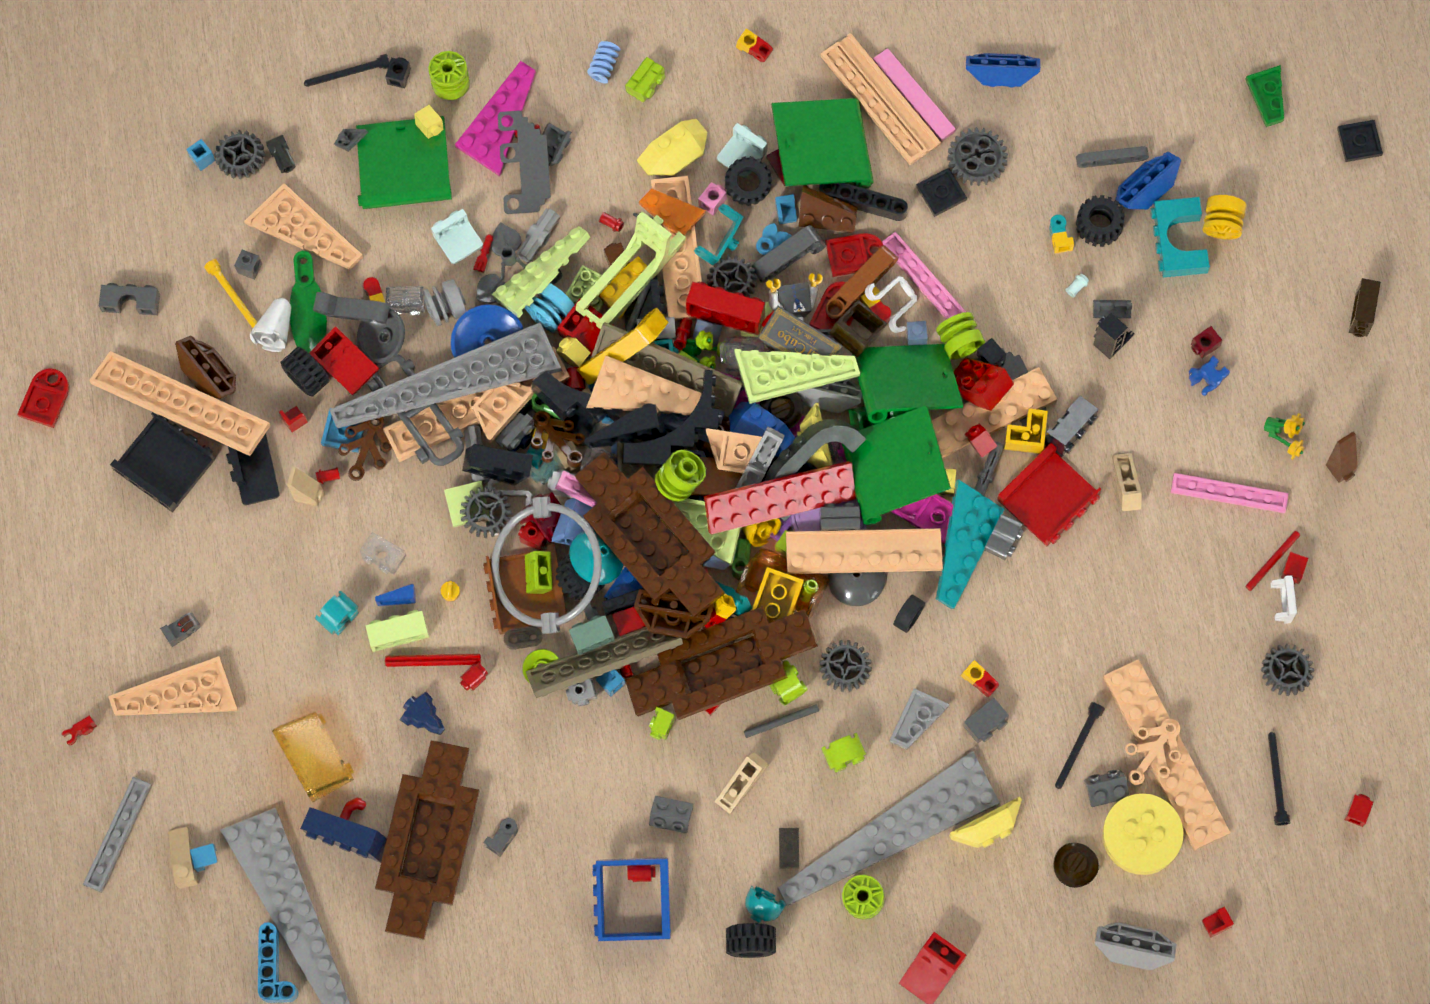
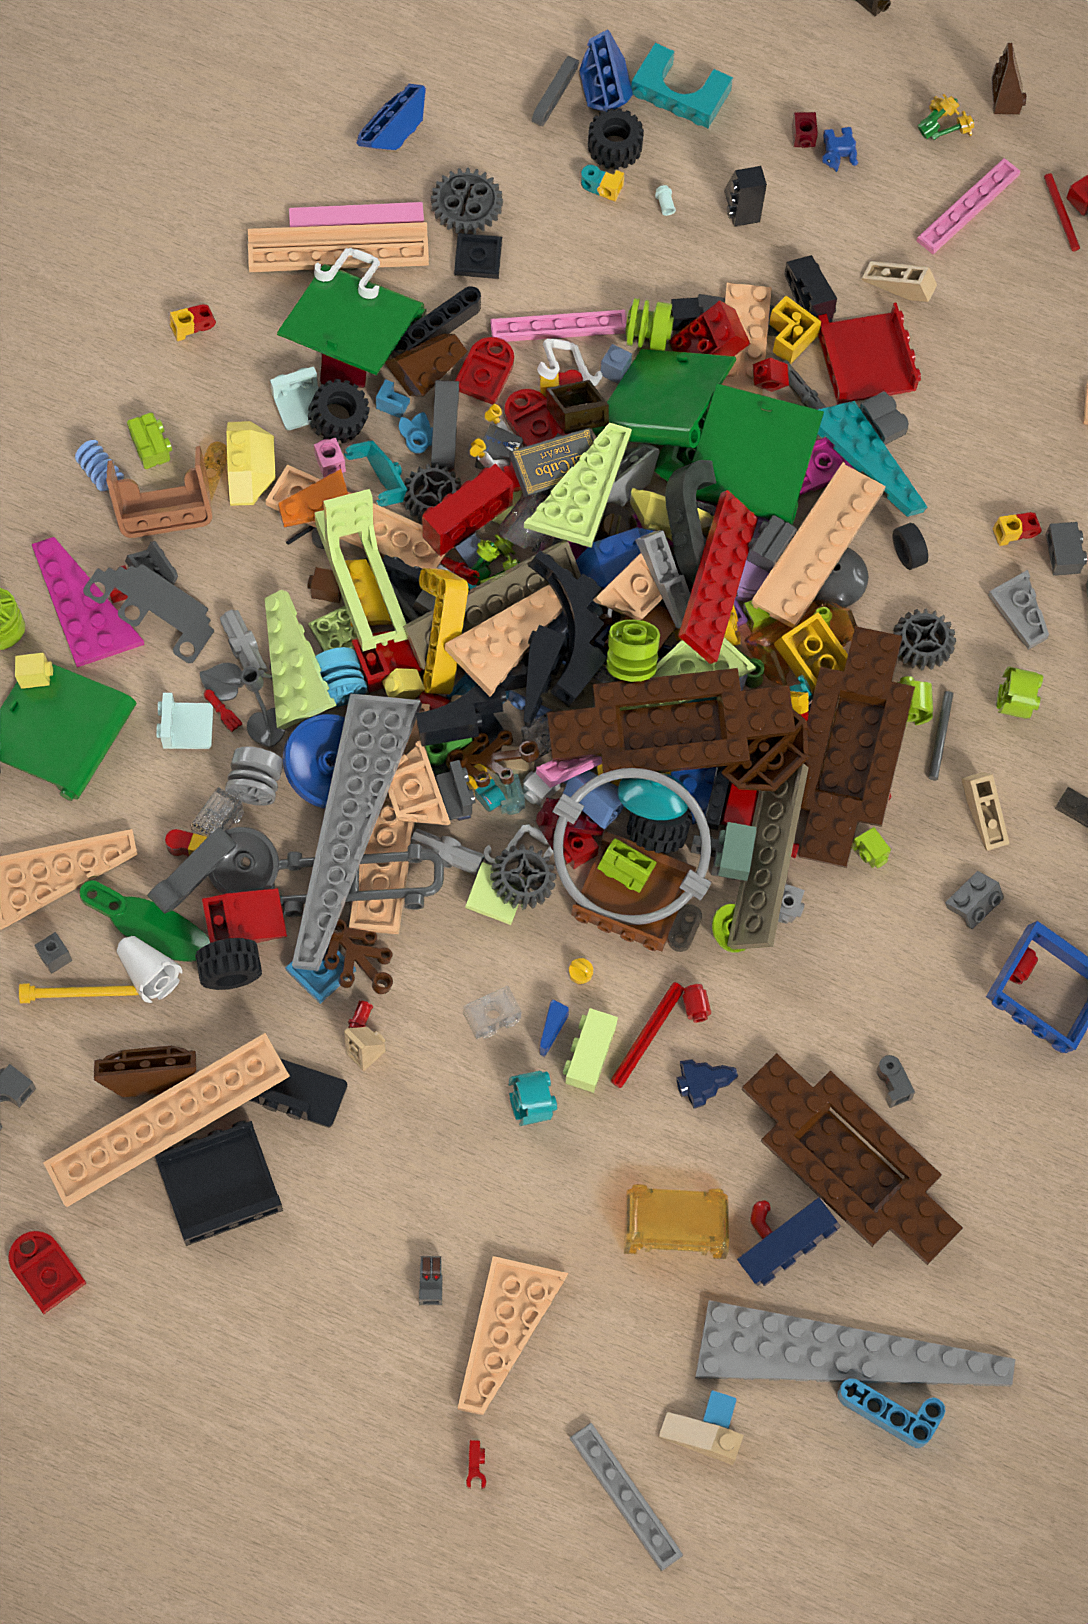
camera: 65 degrees left, 5 degrees down
(293, 418) = (268, 1013): red panel -> none
(497, 464) = (480, 829): black wedge -> none
(597, 118) = (162, 509): none -> nougat windscreen
(611, 682) = (797, 869): dark azure panel -> none
(612, 222) = (282, 566): red pin -> none
(636, 132) = (219, 466): none -> clear yellow beam
(855, 287) = (526, 378): dark orange piece -> none
(879, 114) = (360, 255): none -> white piece
(1118, 308) = (711, 185): dark grey hinge -> none
(1224, 217) = (691, 35): yellow wheel -> none

